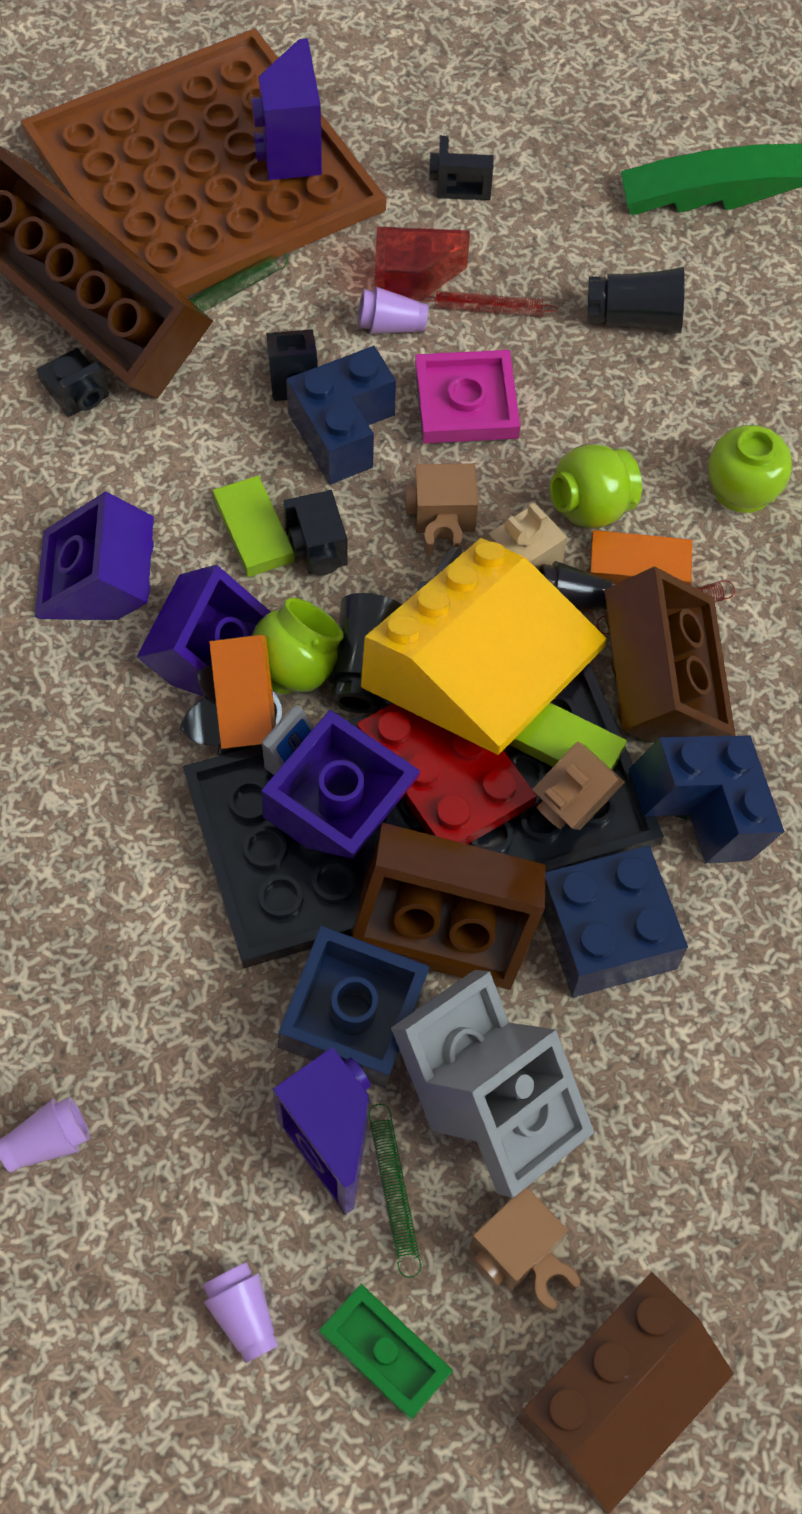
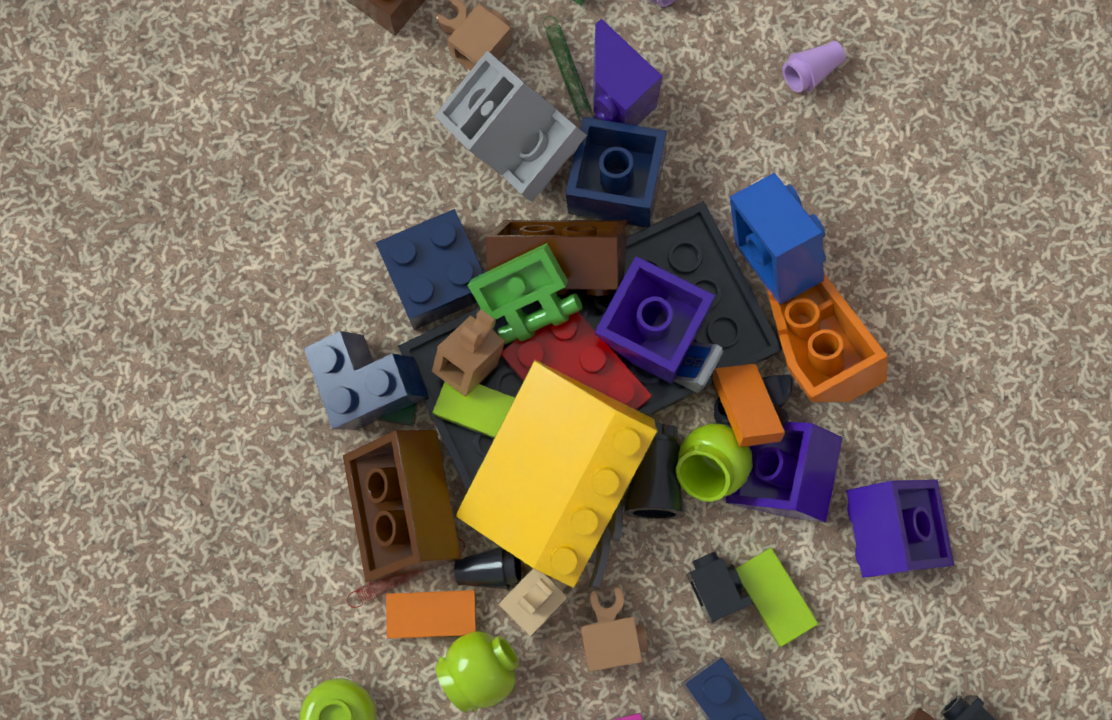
camera: 175 degrees right, 15 degrees up
(134, 772) = (828, 345): none -> orange wedge
(159, 871) = (778, 237): none -> blue brick
(502, 835) = (522, 282): none -> bright green plate

